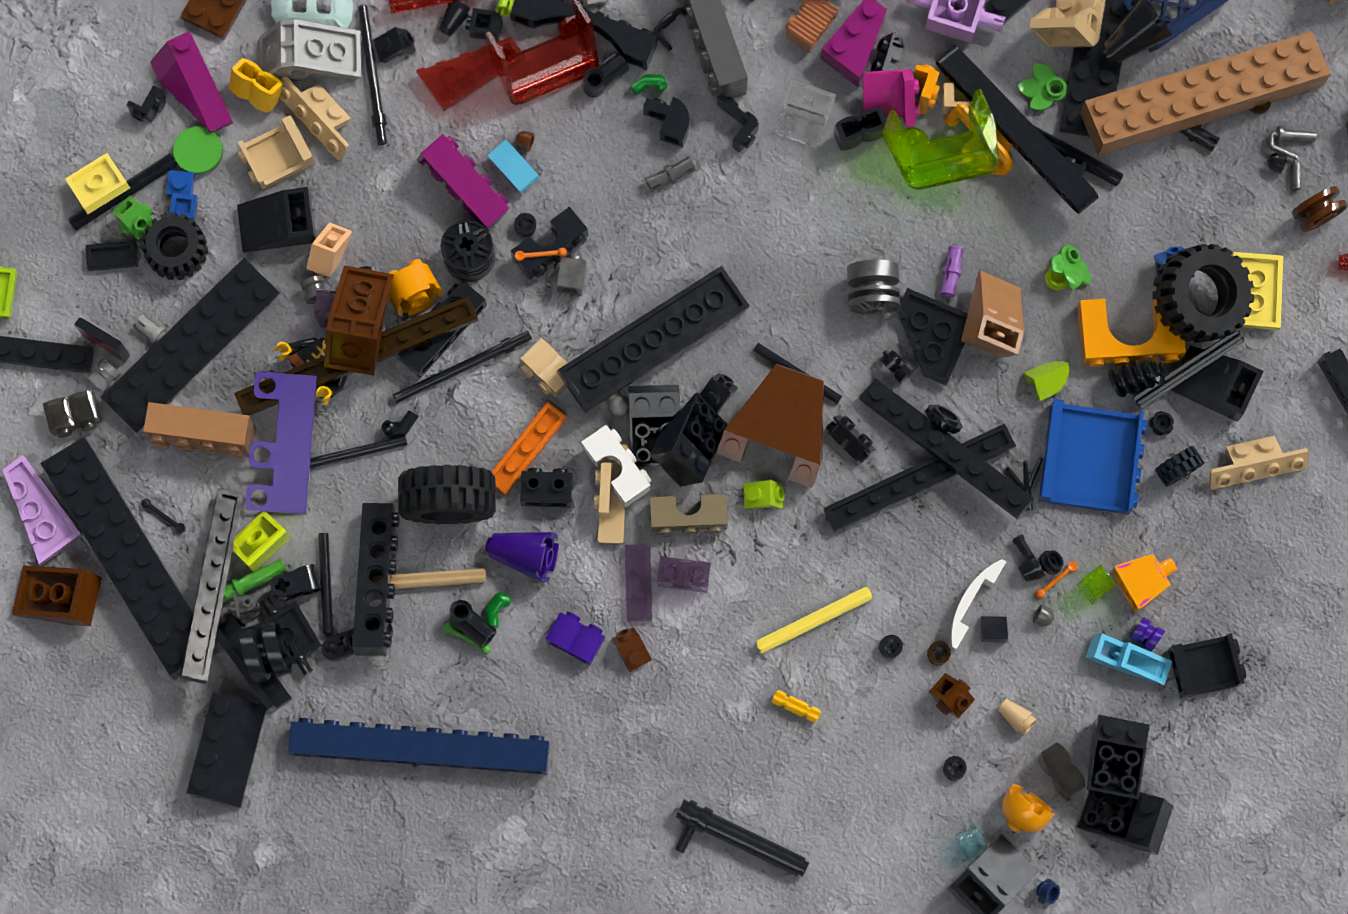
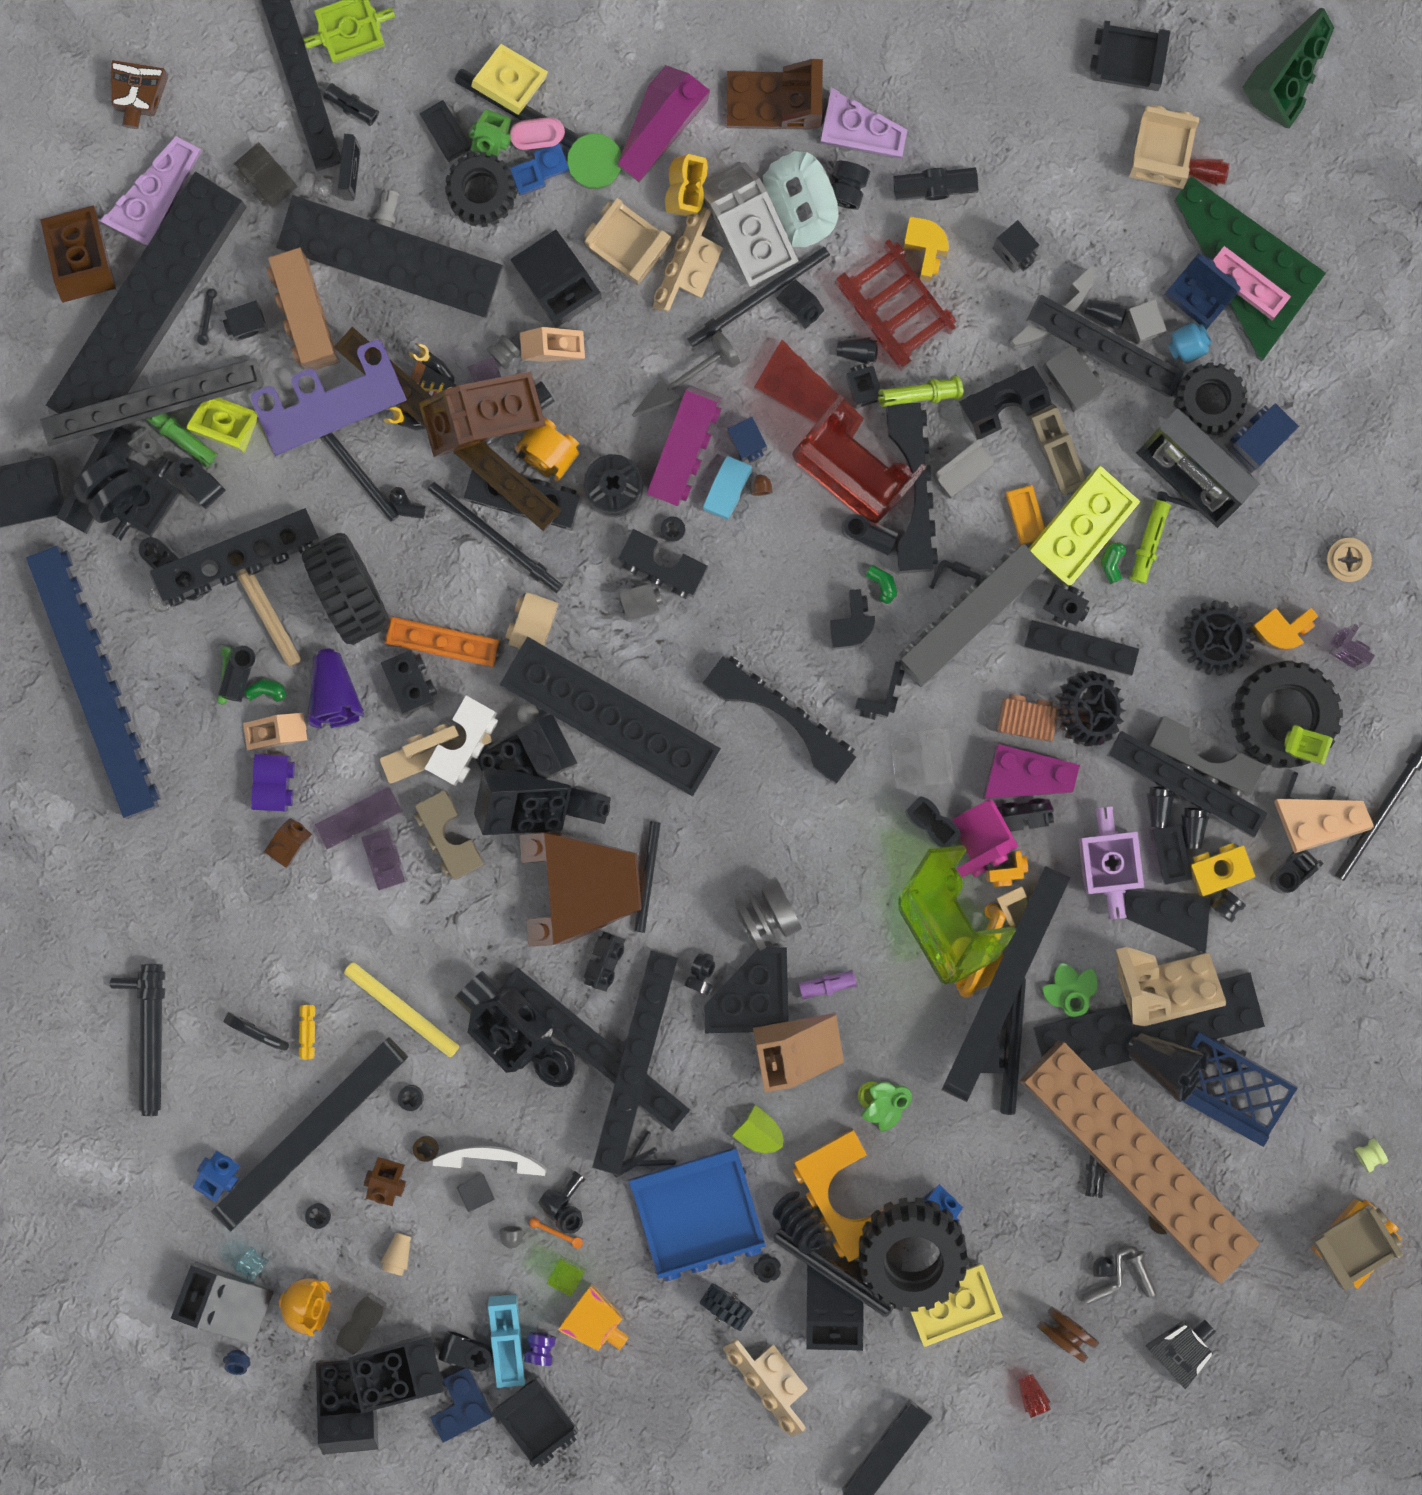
camera: 70 degrees right, 10 degrees up
(35, 327) = (351, 104): none -> black pin
(151, 106) = (618, 91): black bracket -> none
(152, 182) = (537, 133): none -> bright pink tile
(183, 484) = (245, 321): none -> black brick
(325, 578) = (214, 510): black bar -> none
(414, 181) = (663, 395): none -> dark grey piece
(483, 133) = (747, 440): none -> dark blue brick
(520, 256) = (631, 542): orange hinge -> none
(534, 616) = (275, 731): none -> light nougat slope
(670, 174) = (795, 650): dark grey pin -> none
(763, 495) = (503, 901): lime bracket -> none
(764, 187) = (733, 684): none -> black arch
(770, 752) = (249, 1029): none -> black piece
(876, 532) = (514, 1031): none -> black brick
(883, 743) = (309, 1134): none -> black beam
(883, 834) = (216, 1176): none -> blue brick
(944, 418) = (665, 1047): black gear -> none
(1120, 699) = (461, 1351): none -> black piece
(1172, 717) = (469, 1406): none -> dark blue plate

